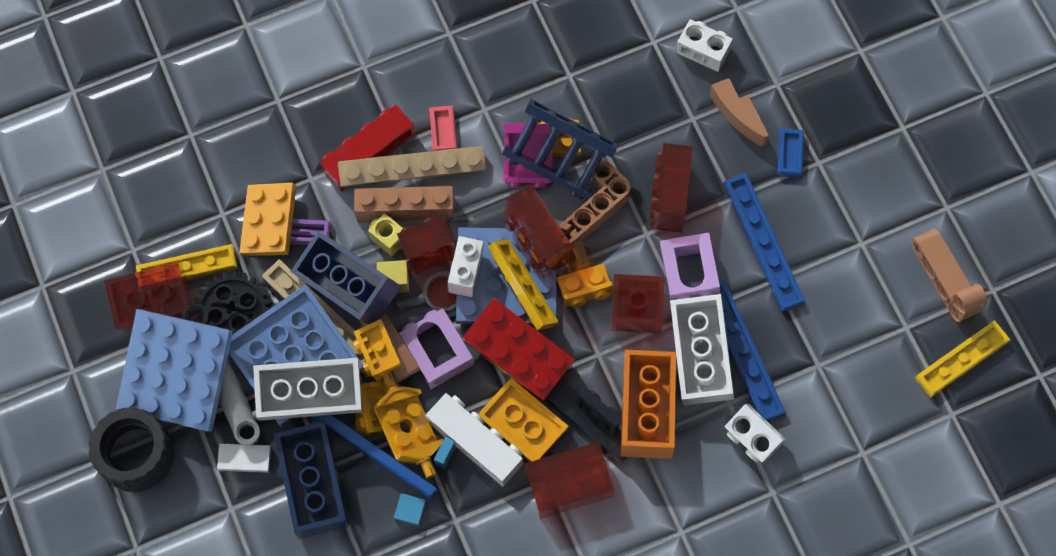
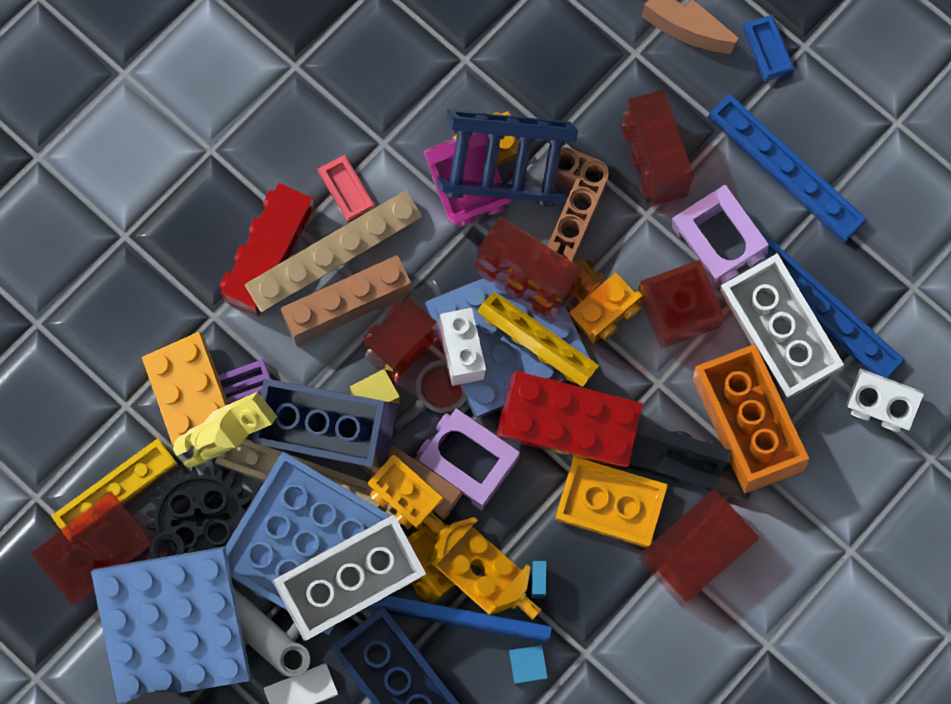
camera: 30 degrees left, 5 degrees up
(276, 254) = (225, 429): none -> light yellow plate
(388, 244) = (349, 358): light yellow brick -> none
(474, 439) = (566, 548): white brick -> none

